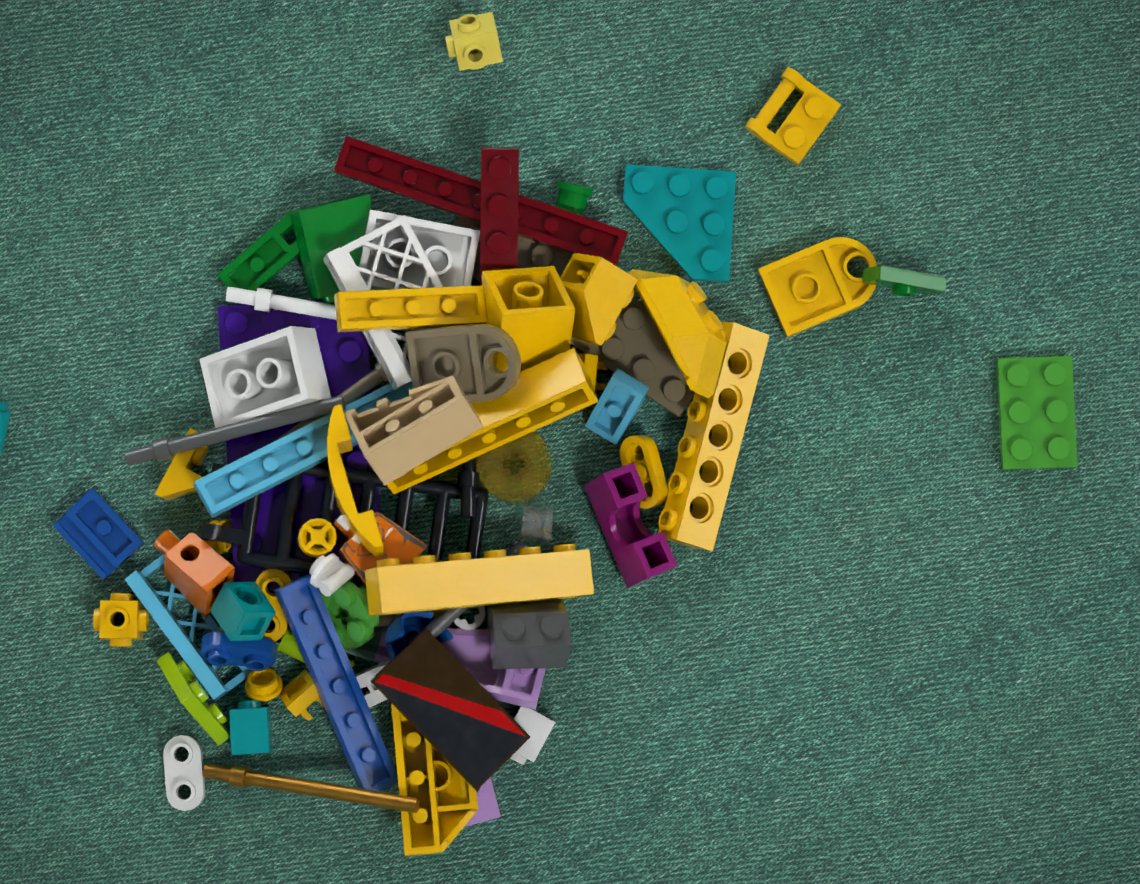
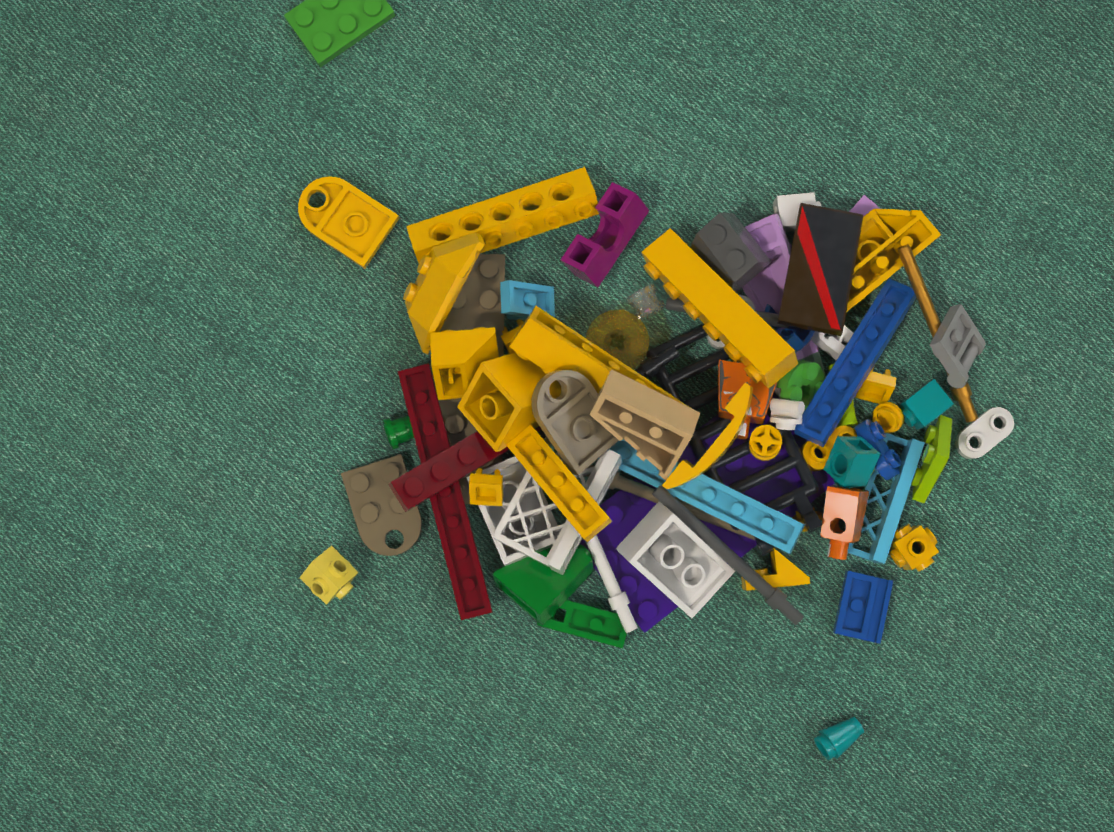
camera: 125 degrees left, 0 degrees up
(294, 795) = (957, 345): none -> light grey plate
(453, 239) = (486, 488): none -> yellow tile
(512, 124) = (378, 509): none -> dark tan plate
(648, 467) = (554, 251): yellow plate -> none
(687, 215) = (357, 344): teal plate -> none
(802, 124) = (237, 304): yellow plate -> none
(904, 281) = (307, 158): green plate -> none

